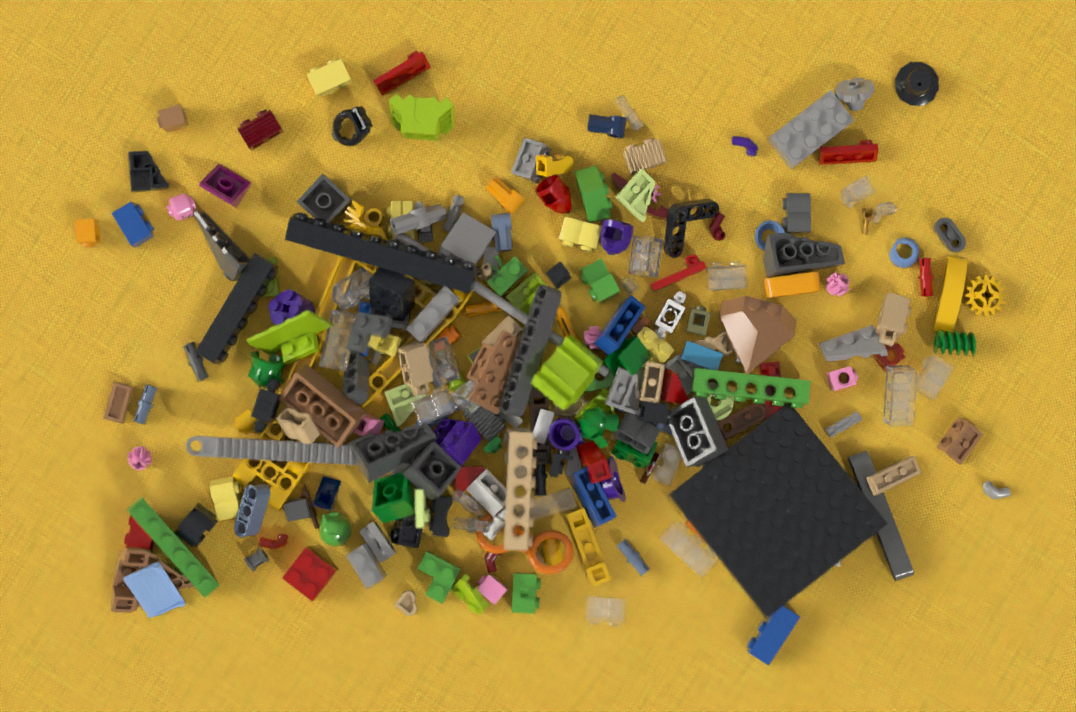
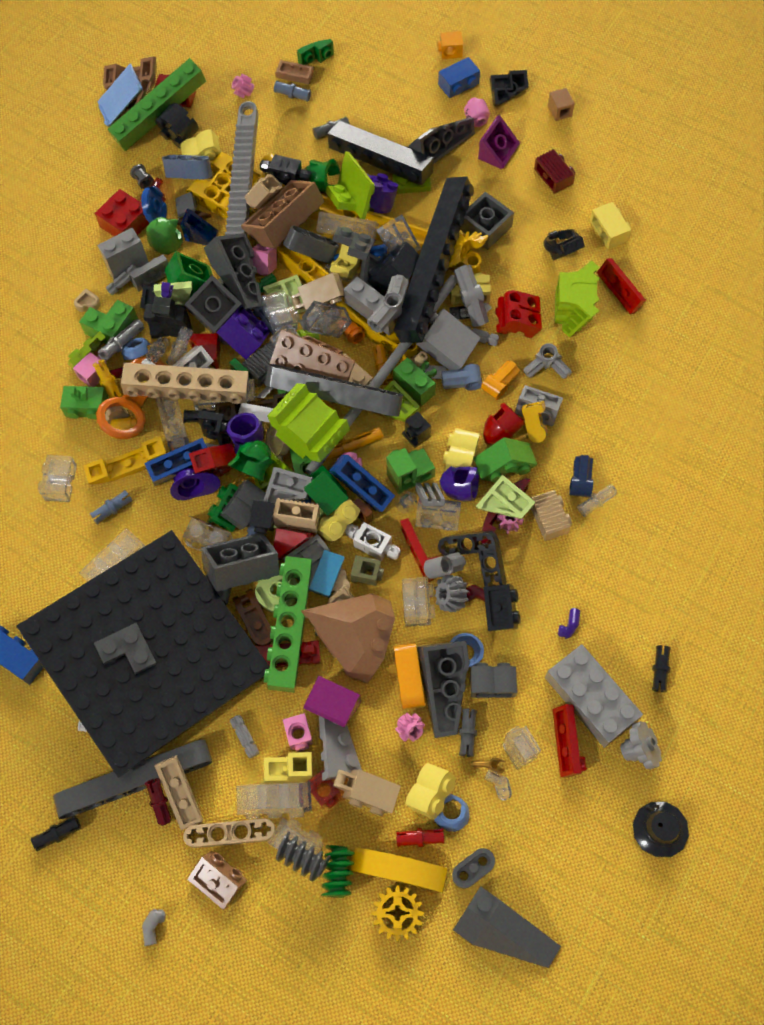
camera: 90 degrees right, 20 degrees down
(91, 374) = (317, 50): none -> green slope
(301, 541) = (153, 204): none -> blue tile
(388, 569) = (121, 280): none -> light grey axle
(435, 182) = (517, 313): none -> red hips
(435, 290) = (385, 312): none -> light grey piece
(441, 515) = (163, 305): none -> pearl dark grey piece
(465, 565) = (116, 343): none -> light grey pin
(475, 546) = (135, 348): none -> medium blue piece
(486, 156) = (542, 362): none -> light grey axle
(505, 571) = (106, 379): none -> yellow pin
(616, 265) = (433, 492): none -> light grey tile
(699, 251) = (444, 565): none -> light grey piece
(721, 246) = (451, 593): none -> light grey gear
(733, 203) = (501, 607): none -> black bracket
(778, 523) = (129, 643): none -> dark grey plate
(785, 70) = (661, 668): none -> black pin
(819, 348) = (332, 701): none -> magenta slope
(840, 236) = (468, 732): none -> dark grey pin
(873, 384) = (293, 768): none -> light yellow brick
(891, 267) = (430, 791): none -> light yellow brick
(900, 491) = (158, 801): none -> dark red axle
(924, 576) = (55, 833): none -> black pin
(926, 432) = (229, 830): none -> tan beam
(949, 369) = (301, 857): none -> dark grey piece
(994, 216) = (499, 928): none -> dark grey wedge

